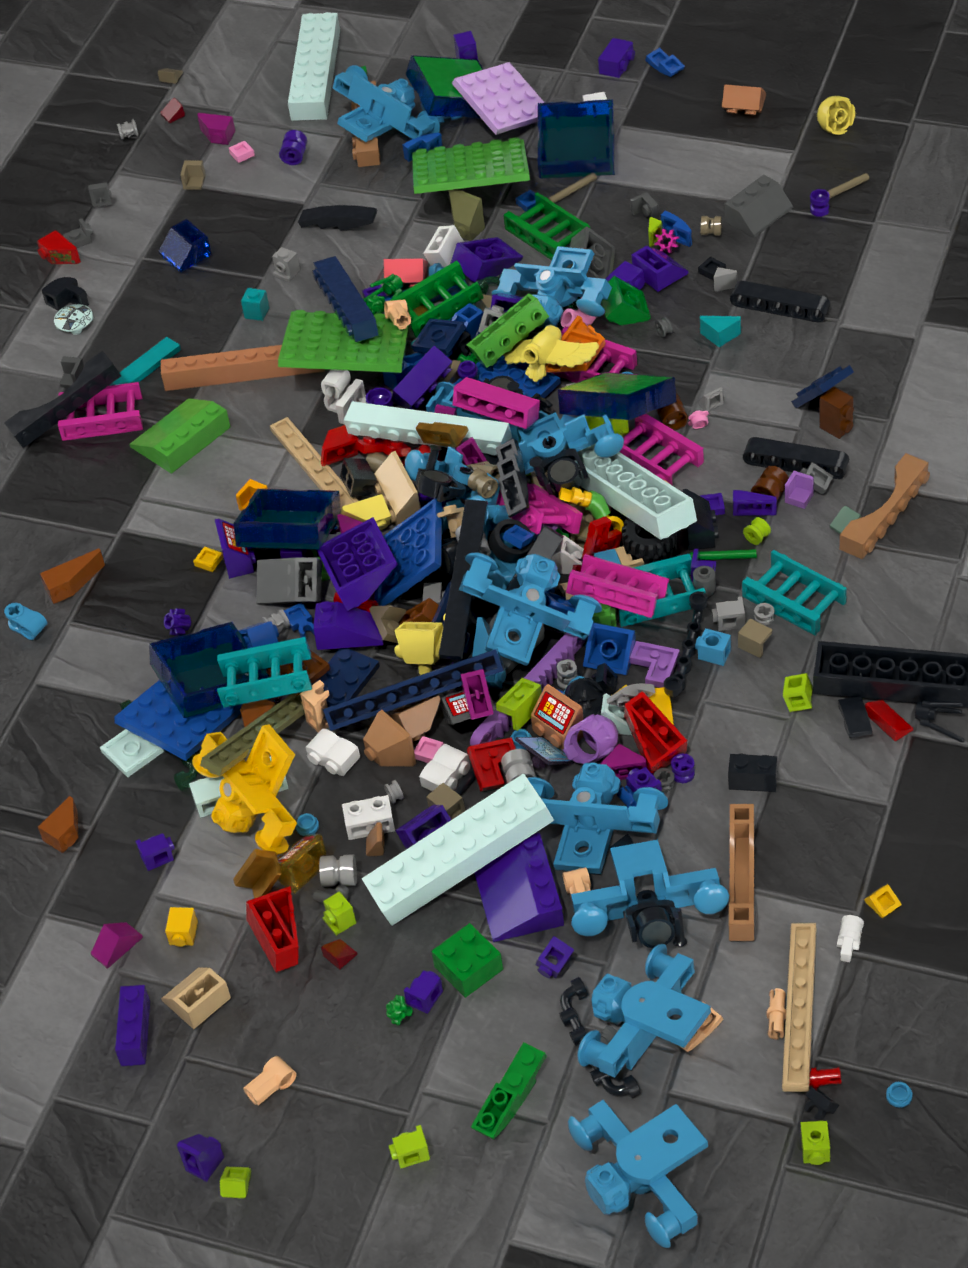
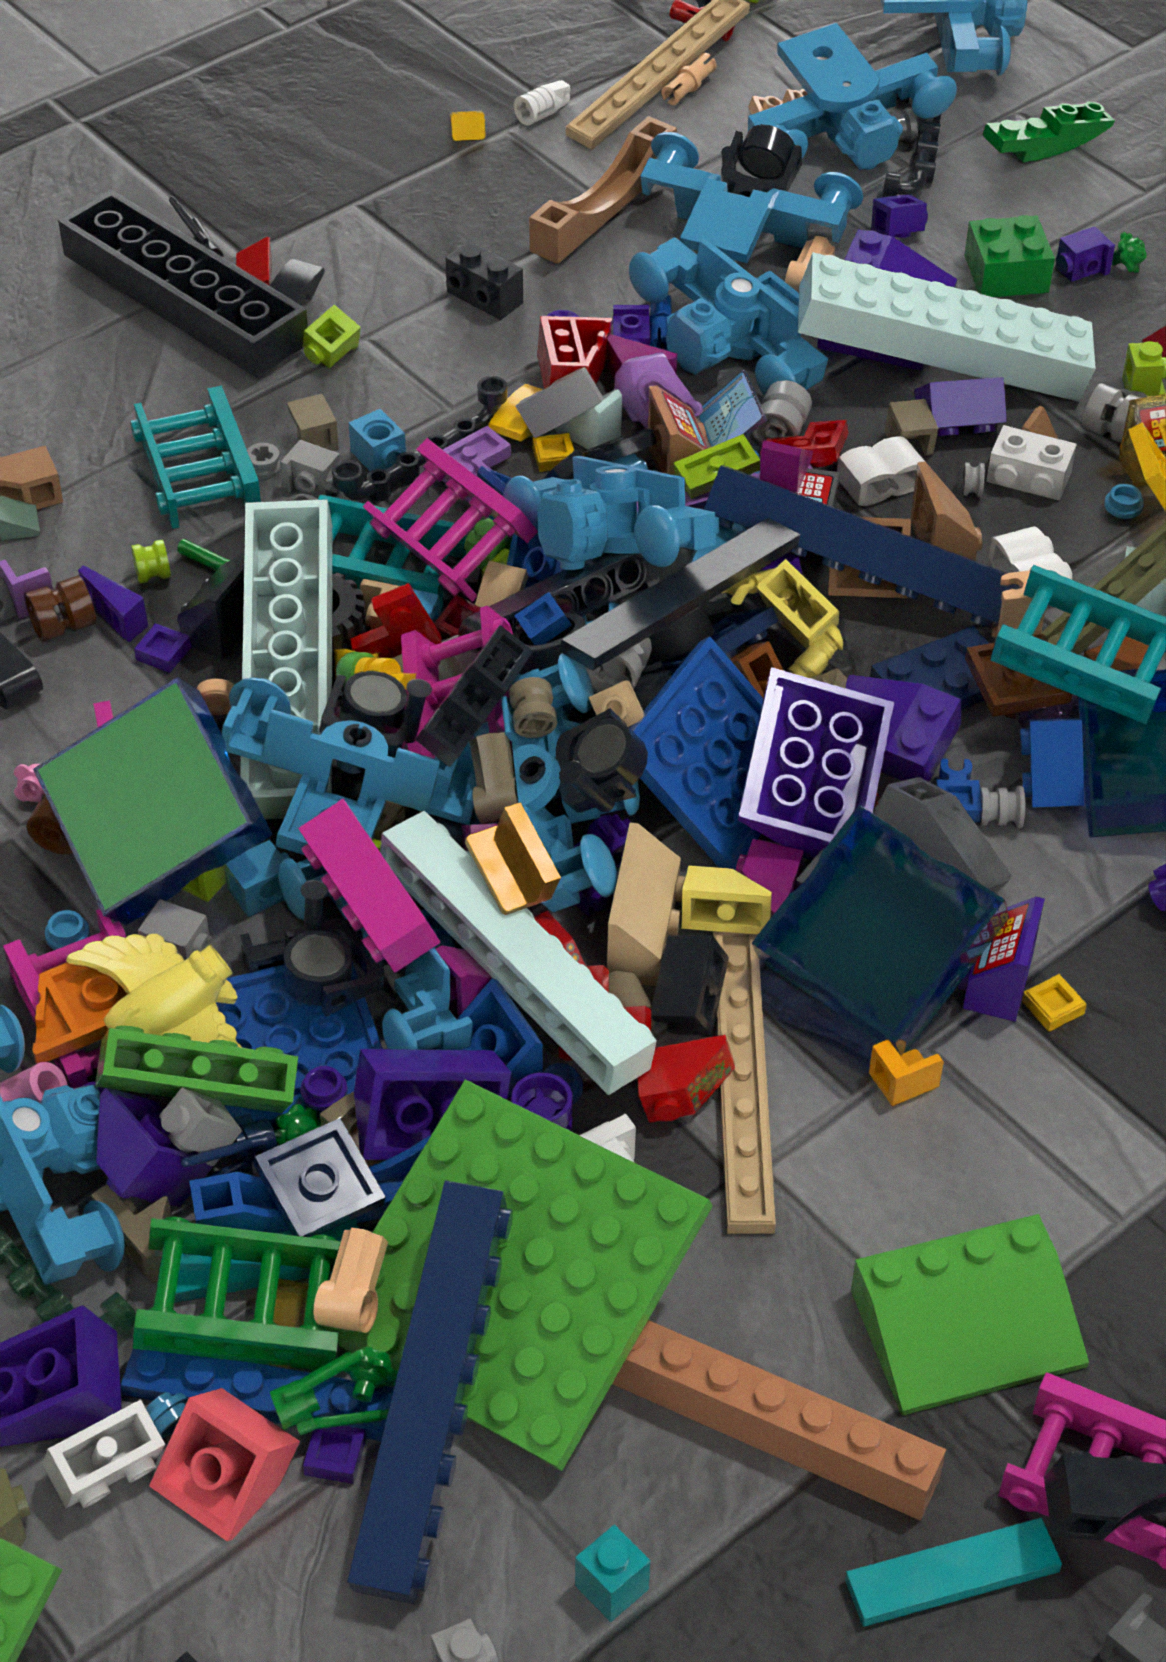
camera: 155 degrees left, 0 degrees up
(426, 749) = (885, 504): bright pink plate -> none

